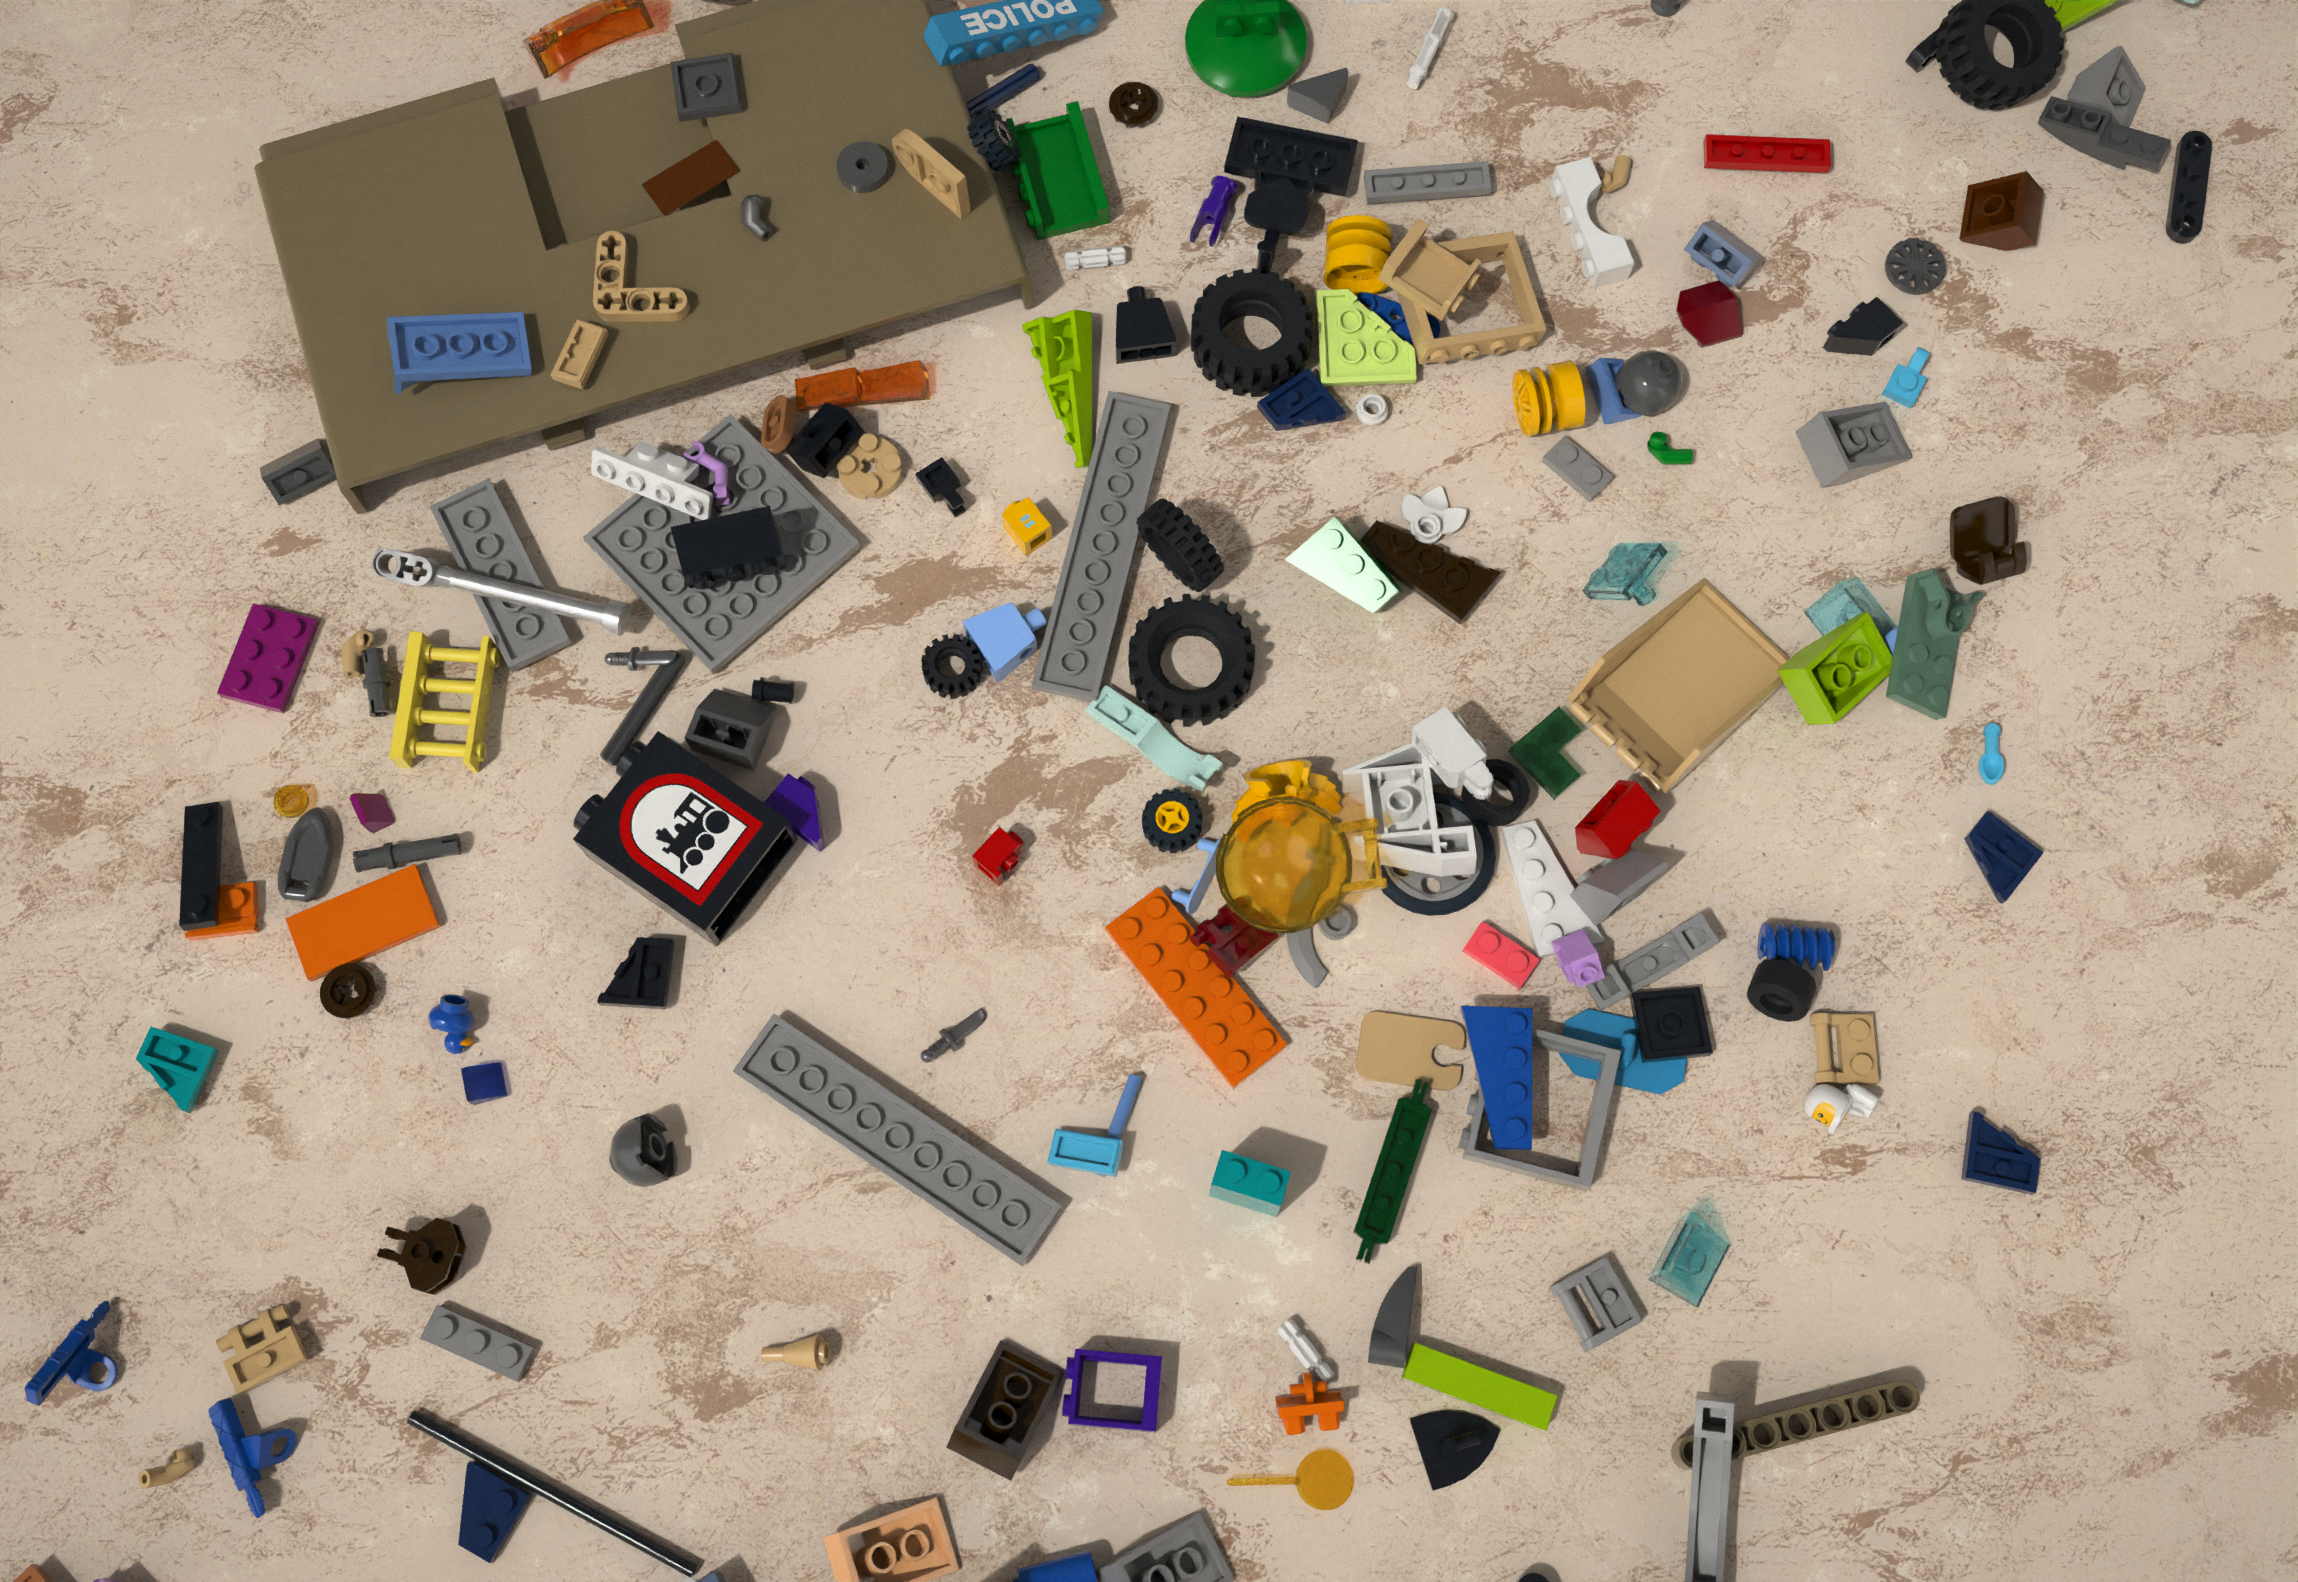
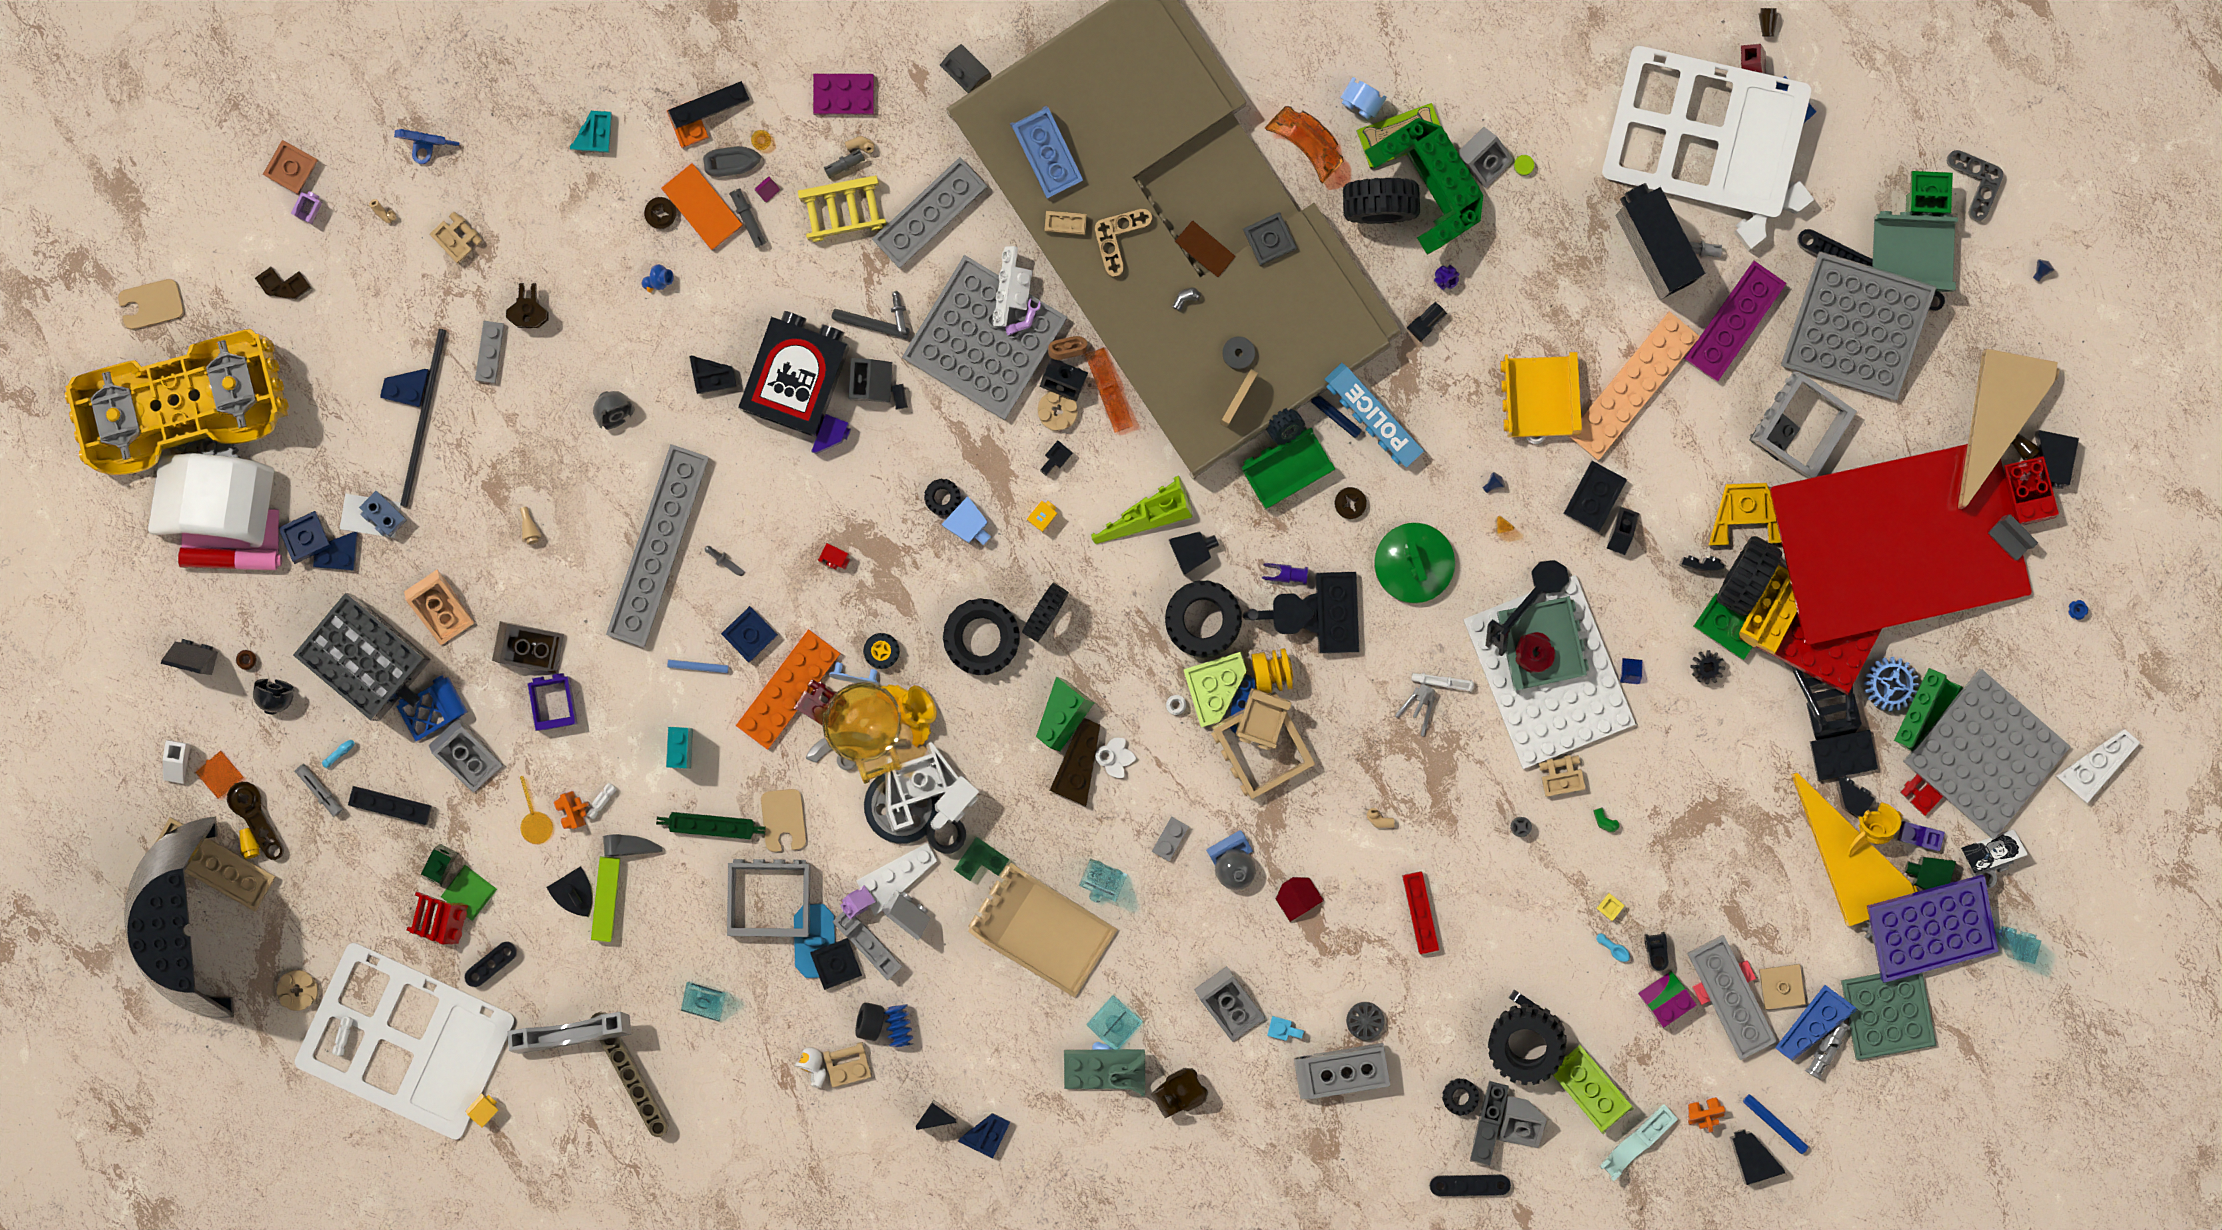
camera: 75 degrees right, 15 degrees up
(248, 1453) = (400, 250): blue piece -> none
(484, 1083) = (629, 307): clear blue slope -> none
(612, 617) = (917, 289): flat silver piece -> none
(729, 547) = (972, 348): black slope -> none
(1086, 1152) = (676, 653): medium azure tile -> none
(1087, 1024) = (749, 634): none -> dark blue plate
(1095, 257) = (1235, 508): white axle -> none
(1101, 548) = (1042, 564): light grey plate -> none
(1152, 739) = (928, 626): light aqua piece -> none
(1300, 403) = (1167, 660): dark blue wing -> none
(1318, 95) = (1386, 621): dark grey slope -> none
(1427, 182) = (1342, 702): light grey plate -> none
(1445, 74) = (1424, 695): none -> light grey plant
(1500, 955) = (852, 858): coral plate -> none
(1503, 1064) = (779, 873): blue wing -> none
(1548, 398) = (1204, 810): yellow wheel -> none
(1603, 255) = (1317, 824): white arch -> none
(1606, 1299) = (669, 960): light grey plate -> none
(1616, 821) = (941, 906): red slope -> none
(1665, 453) = (1194, 890): green arm -> none
(1722, 253) = (1336, 897): sand blue brick -> none
(1837, 670) = (1072, 1018): lime slope -> none
(1865, 331) = (1309, 997): black slope -> none
(1964, 924) = (936, 1116): none -> black slope
(1991, 762) = (1042, 1121): medium azure piece -> none
(1992, 306) = (1314, 1085): none -> light grey hinge
(1996, 1158) = (805, 1161): dark blue wing -> none
(2002, 212) = (1415, 1068): reddish brown slope -> none
(2061, 151) = (1472, 1092): none -> black tyre

